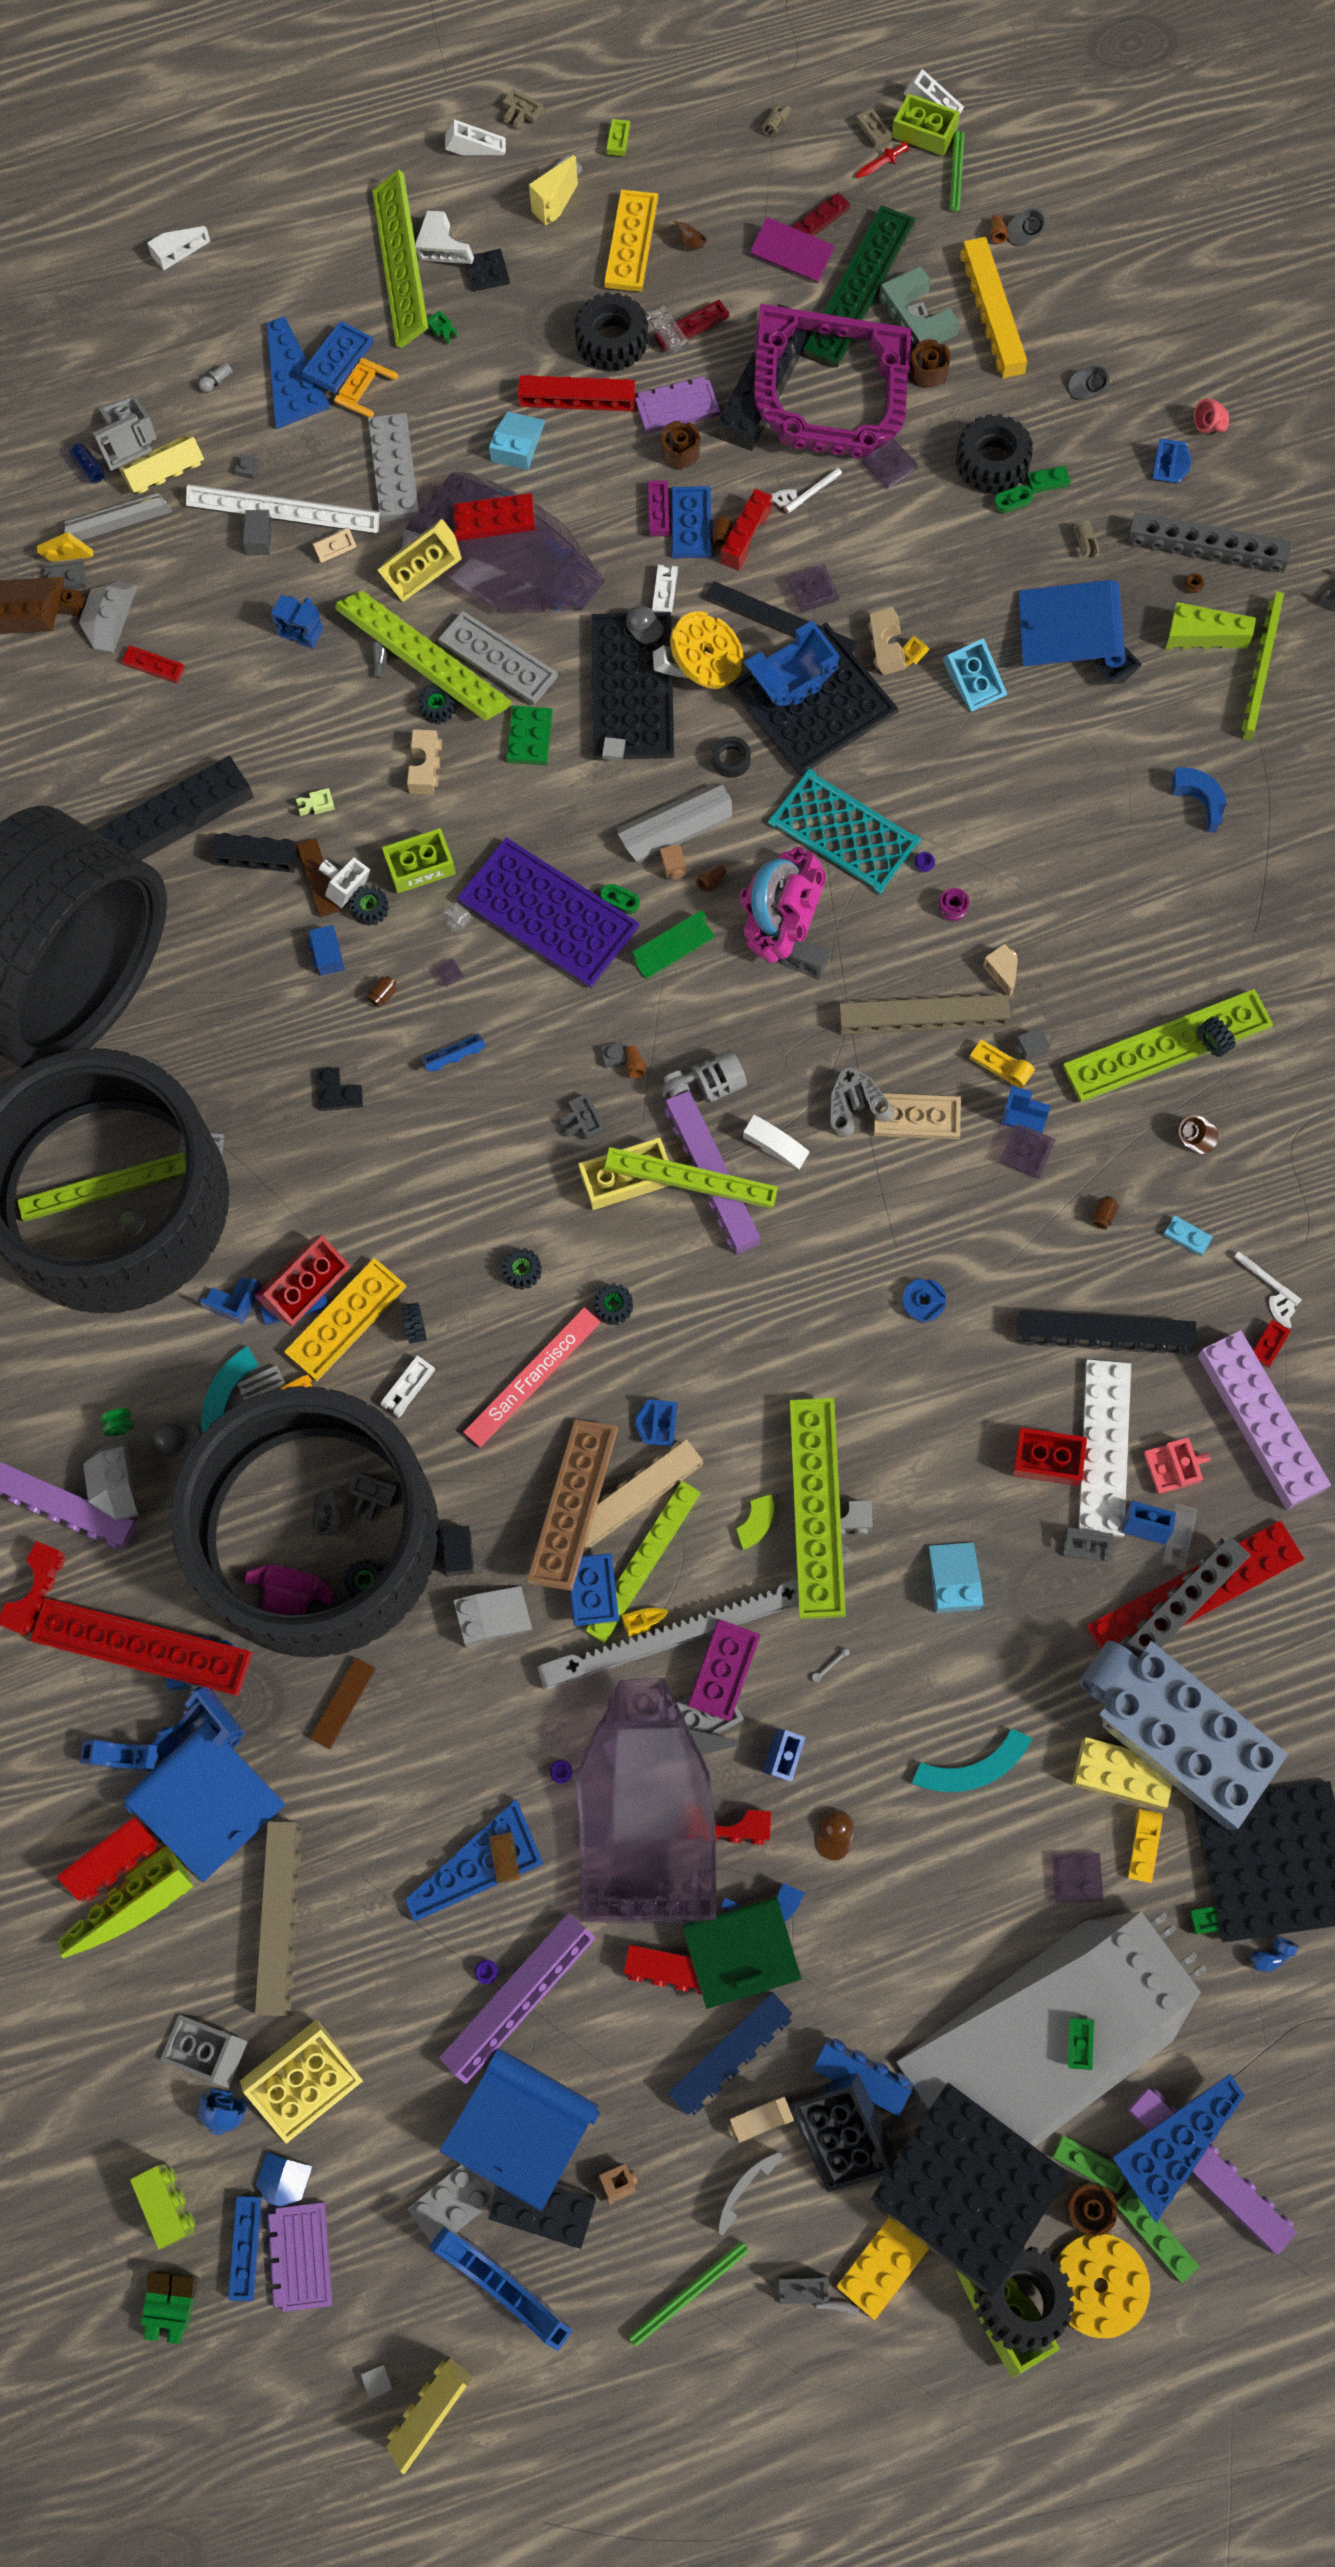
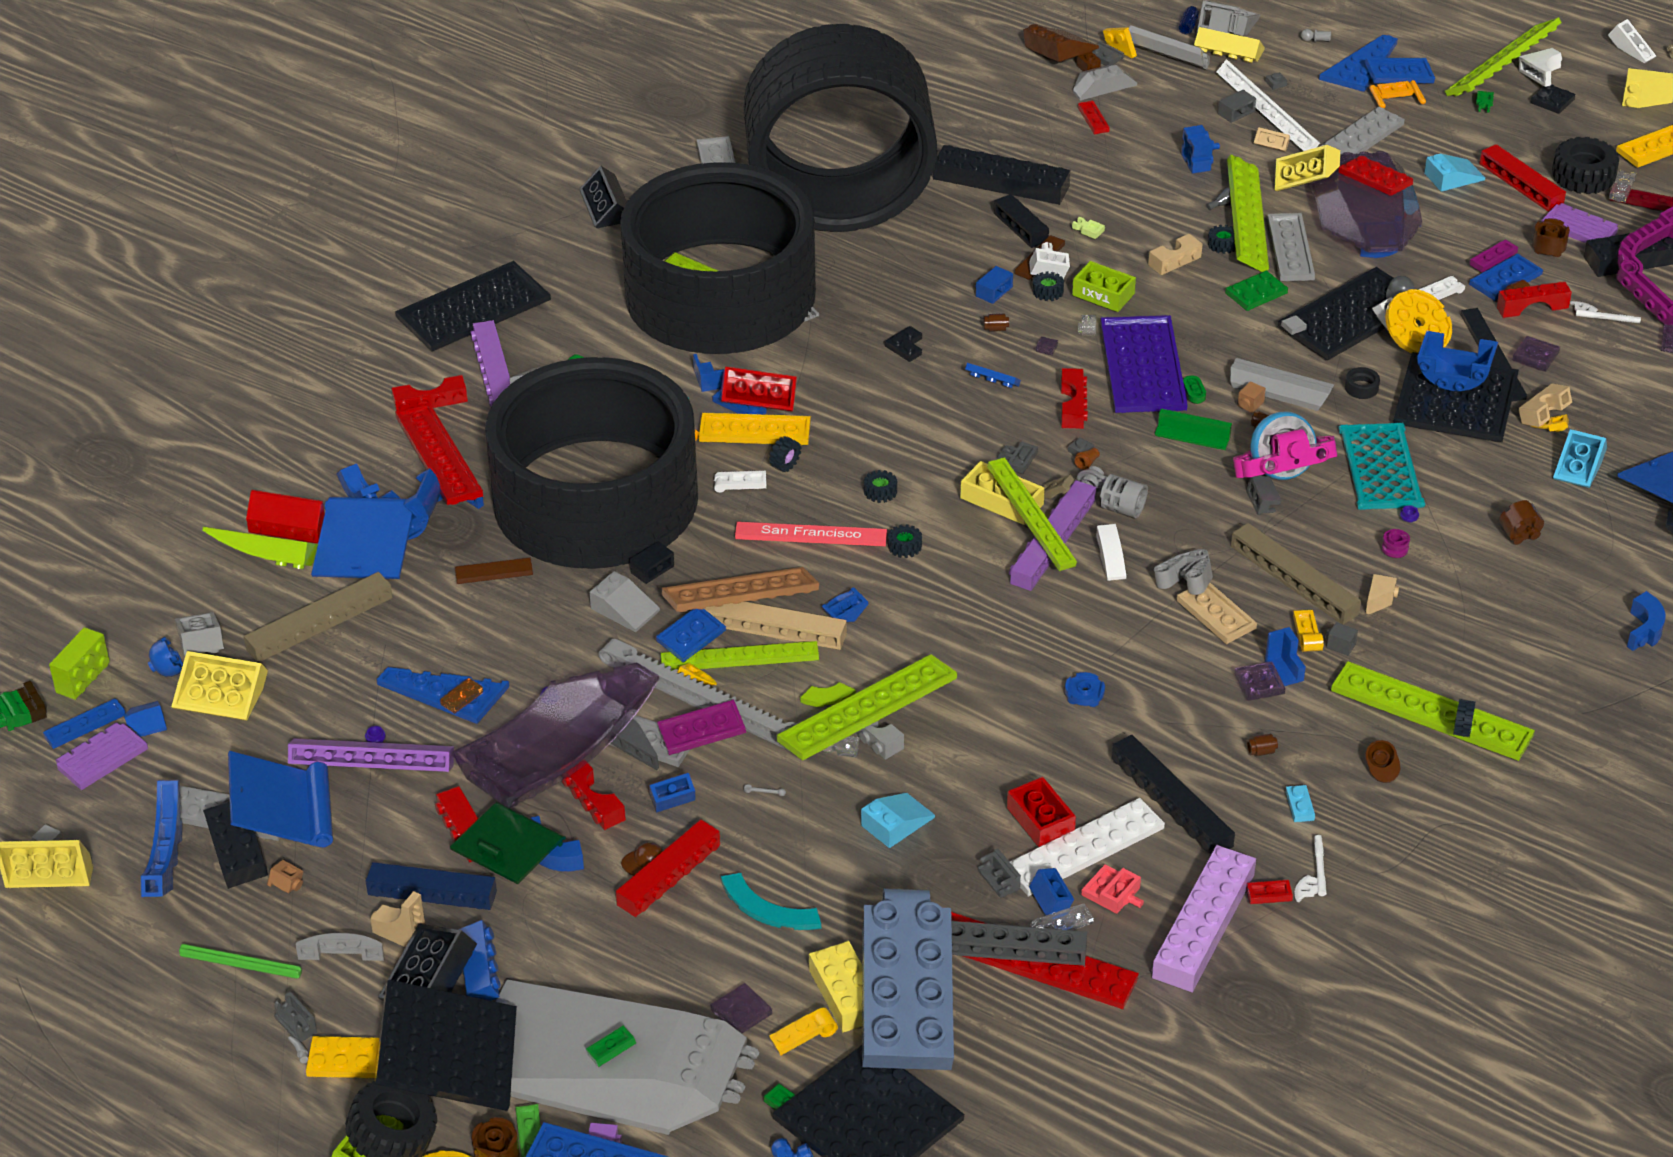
camera: 50 degrees right, 30 degrees down
(526, 994) = (1075, 410): none -> red arch
(657, 1122) = (1057, 486): none -> dark tan plate
(869, 1822) = (668, 868): none -> red brick
(1017, 788) = (1522, 522): none -> reddish brown brick

